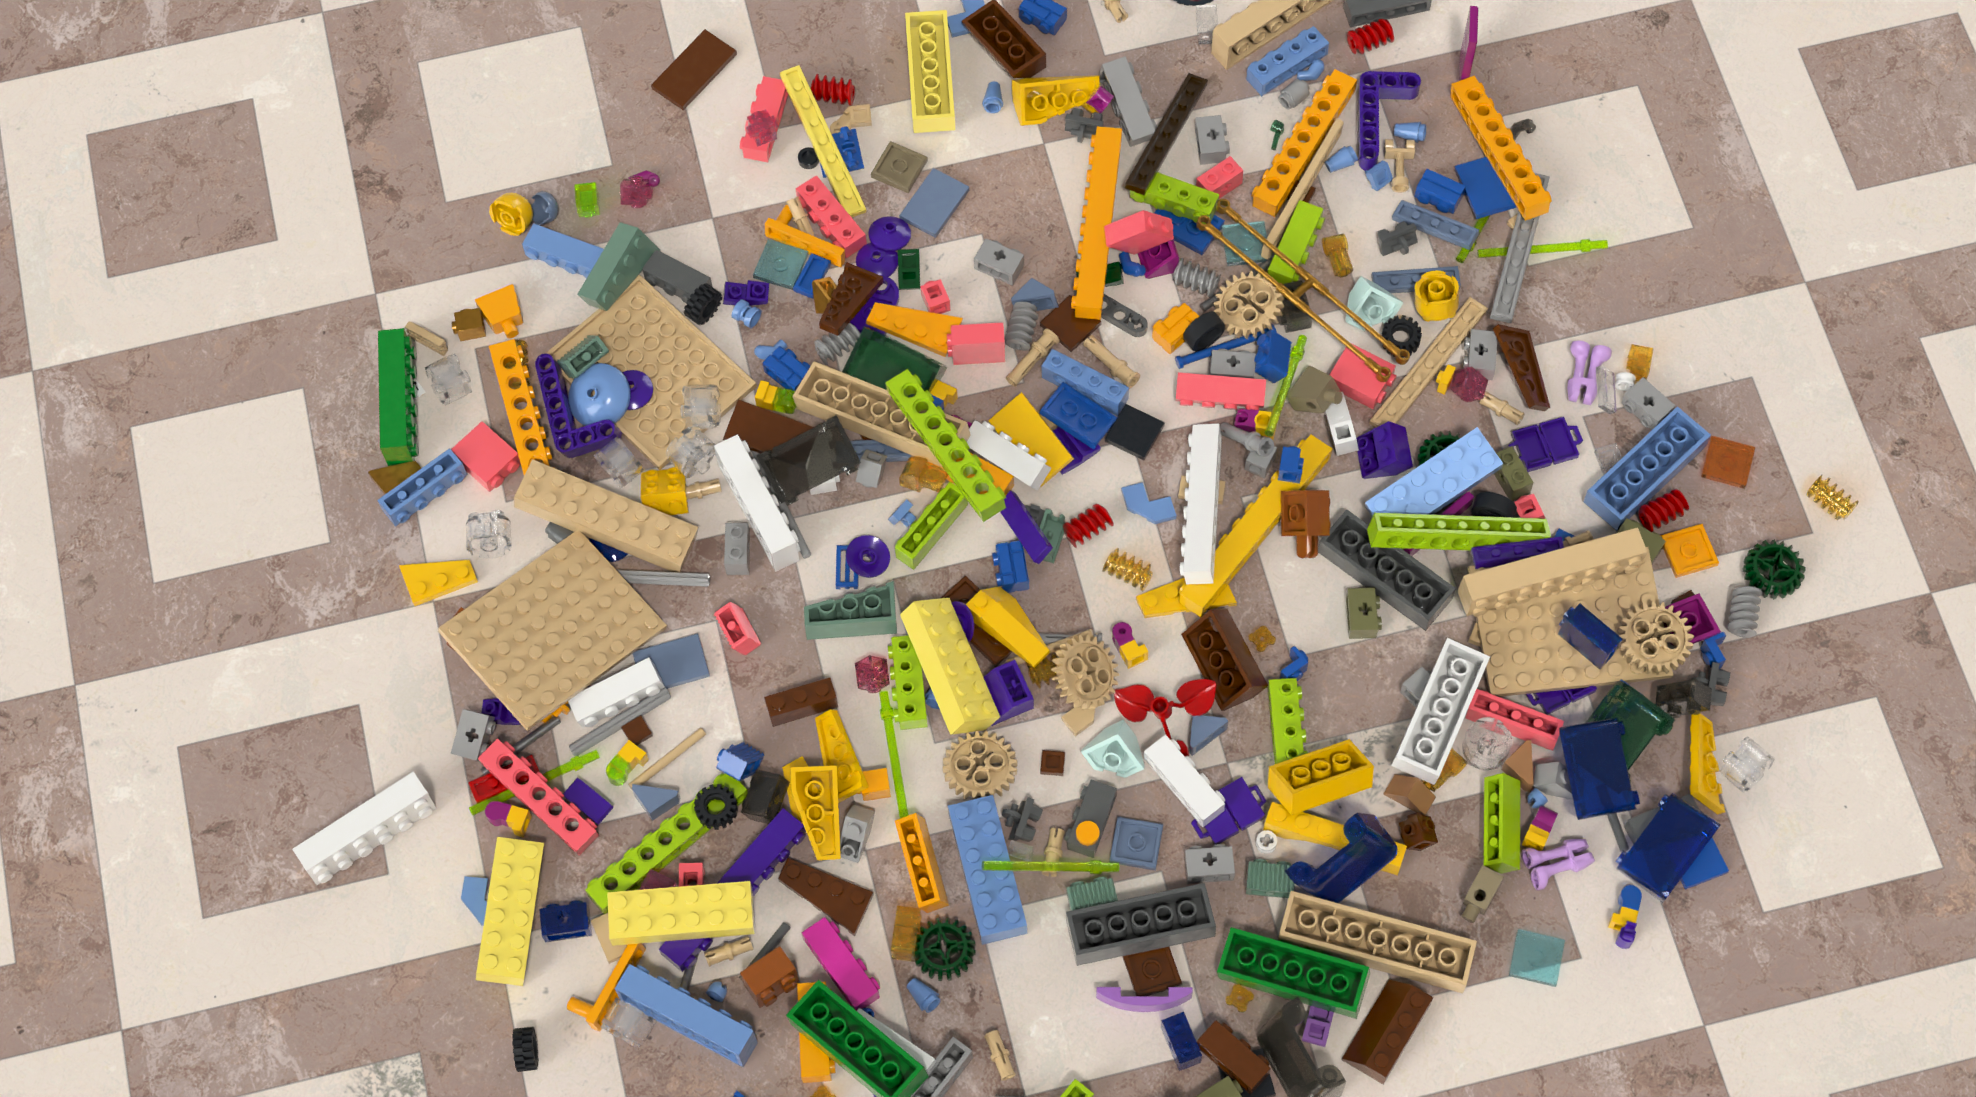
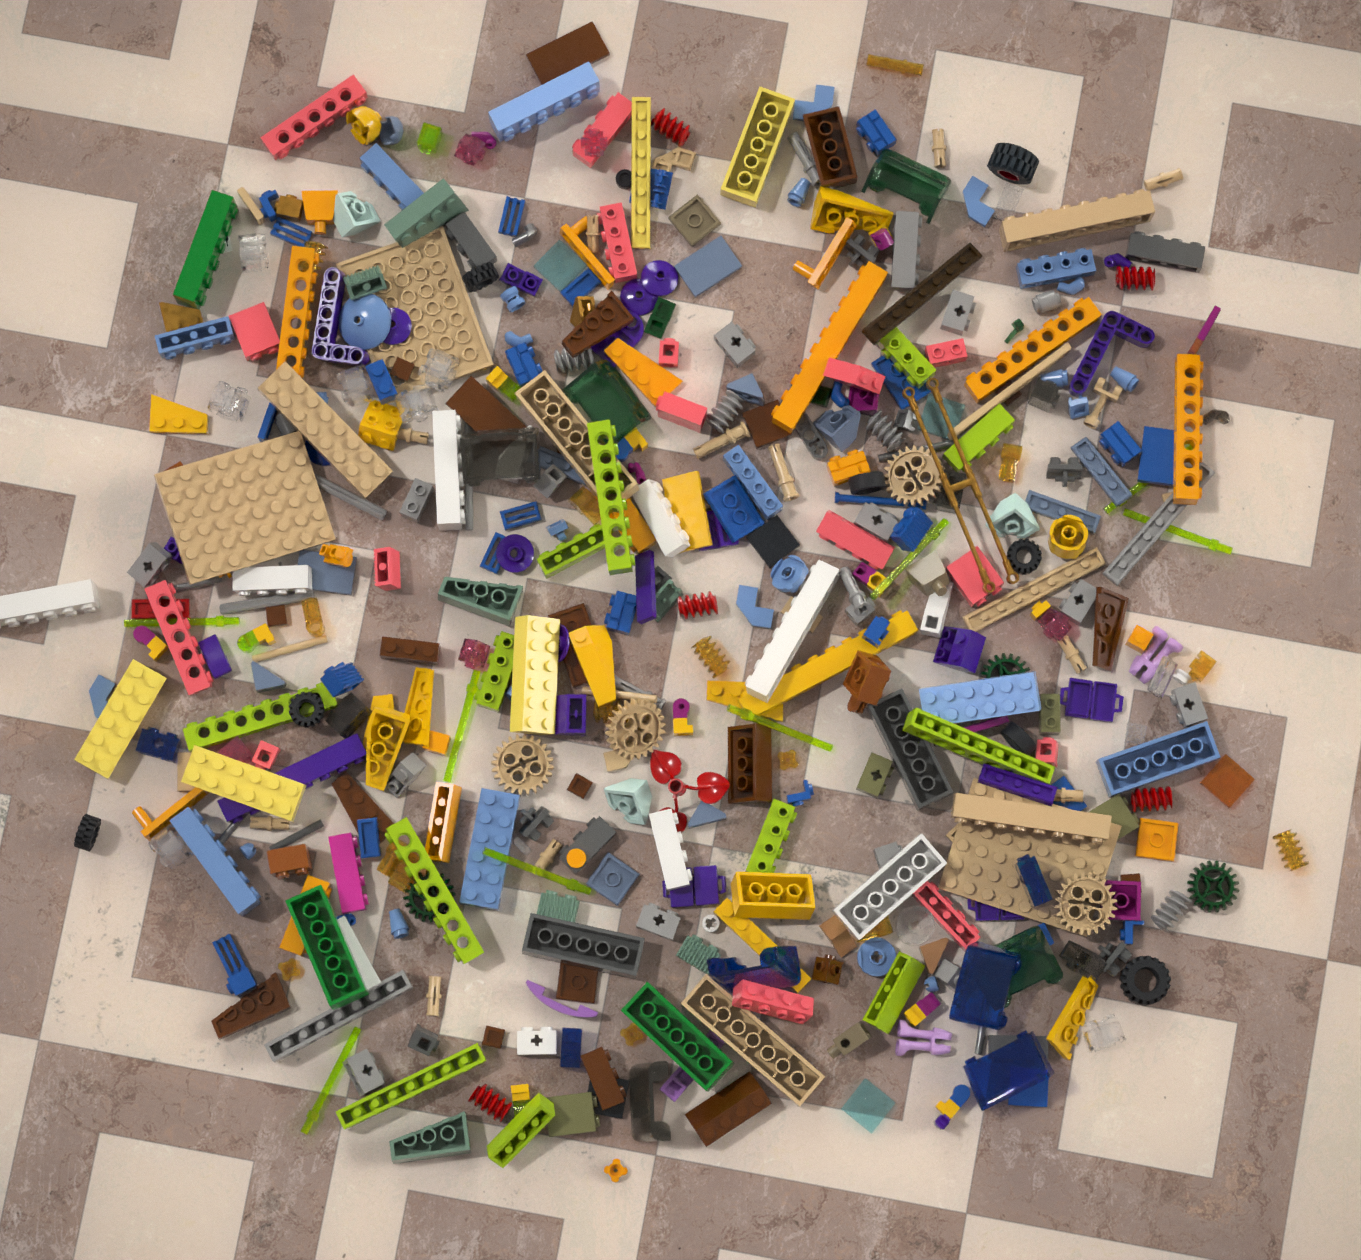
camera: 20 degrees right, 15 degrees up
(442, 329) = (267, 209): none -> blue bracket
(445, 234) = (317, 108): none -> coral brick
(478, 344) = (277, 227): none -> blue tile
(539, 304) = (353, 215): none -> light aqua slope
(539, 536) = (267, 423): none -> blue tile
(645, 444) = (381, 381): none -> blue brick
(661, 426) = (402, 369): none -> reddish brown tile
(676, 636) = (337, 555): none -> light orange hips
(678, 714) = (313, 616): none -> clear yellow piece
(691, 116) = (544, 102): none -> light blue brick
(704, 224) = (515, 201): none -> blue tile
(733, 247) = (526, 236): none -> flat silver arm
(847, 915) = (369, 837): none -> blue tile
(862, 524) = (519, 516): none -> blue tile
(883, 928) = (390, 861): none -> clear yellow piece
(943, 921) = (473, 948): none -> lime brick
(992, 69) = (805, 157): none -> light grey pin
(1052, 162) = (817, 275): none -> light orange piece
(1088, 1070) = (493, 1037): none -> reddish brown tile
(1098, 42) = (909, 180): none -> clear green windscreen
(1134, 1063) = (525, 1044): none -> white brick
(1149, 293) = (839, 427): none -> sand blue slope
(1175, 460) = (794, 580): none -> medium blue plate
(1179, 42) = (977, 210): none -> medium blue tile
(1199, 603) = (747, 714): none -> clear neon green bar
(1210, 258) = (904, 419): none -> dark grey tile
(1340, 175) = (1044, 395): none -> clear smoke brick
(1341, 30) = (1115, 260): none -> dark purple arm
(1378, 887) = (772, 1001): none -> coral brick
(1466, 785) = (867, 950): none -> medium blue plate
(1562, 363) = (1139, 639): none -> light orange brick
(1763, 676) = (1162, 980): none -> black tyre

